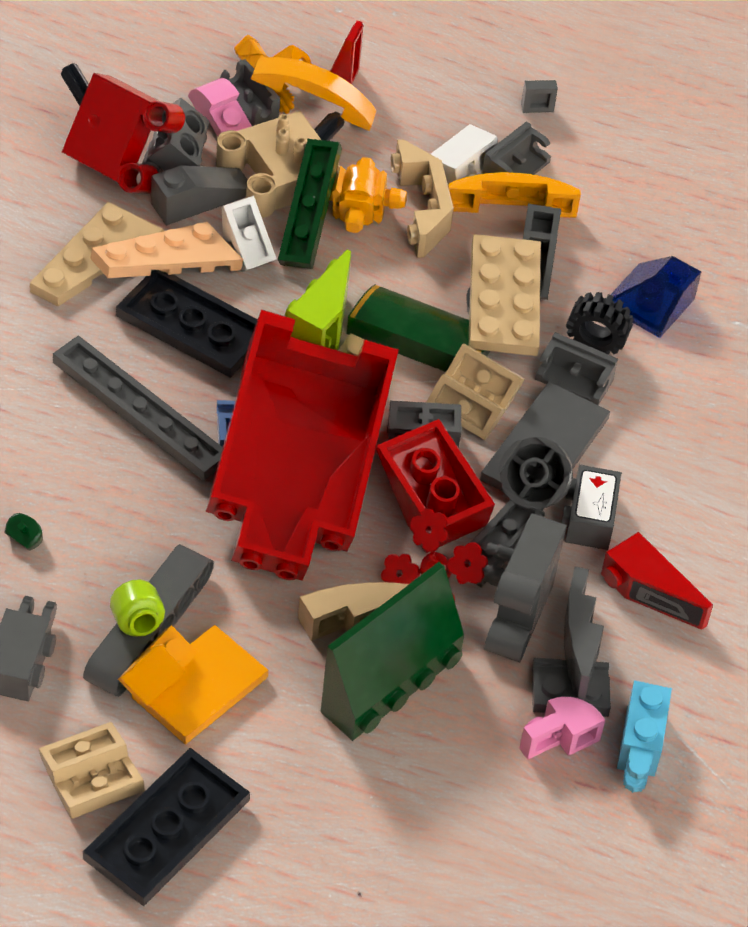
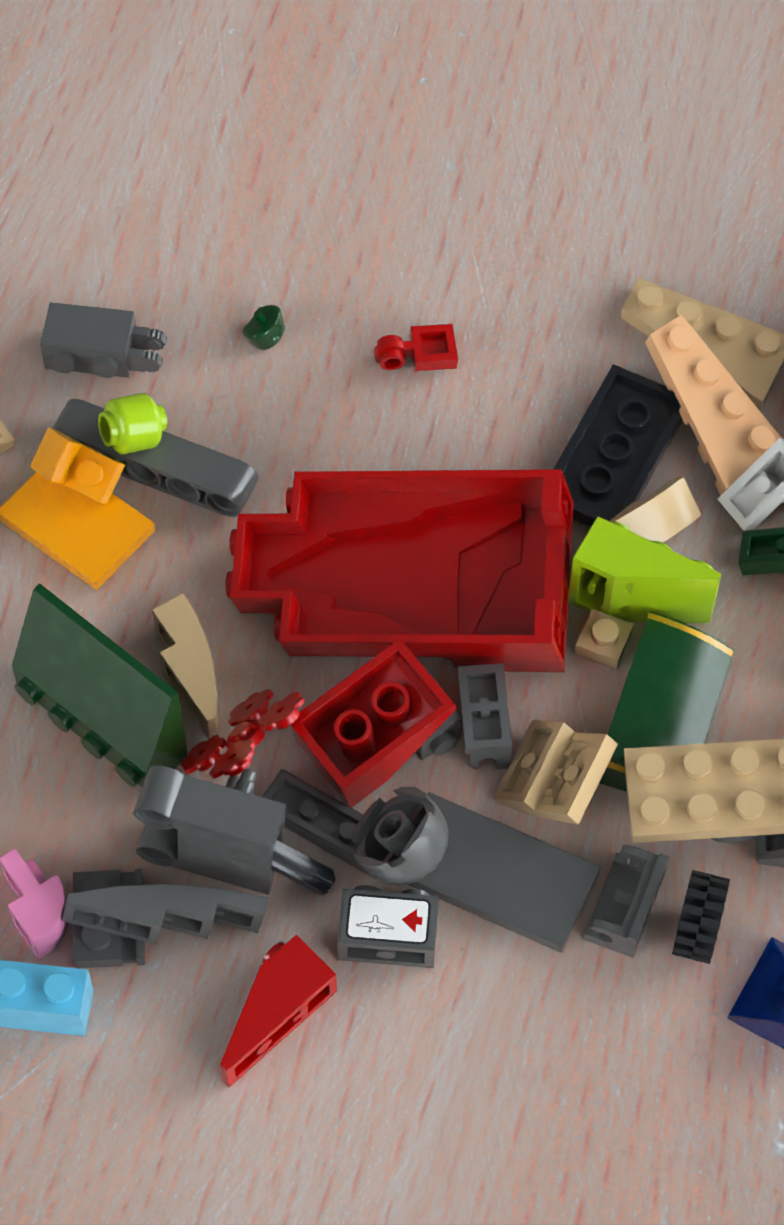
camera: 90 degrees right, 10 degrees up
(72, 424) = (429, 346): none -> red plate
(139, 407) = (477, 397): dark grey plate -> none
(260, 296) = (662, 513): none -> tan slope

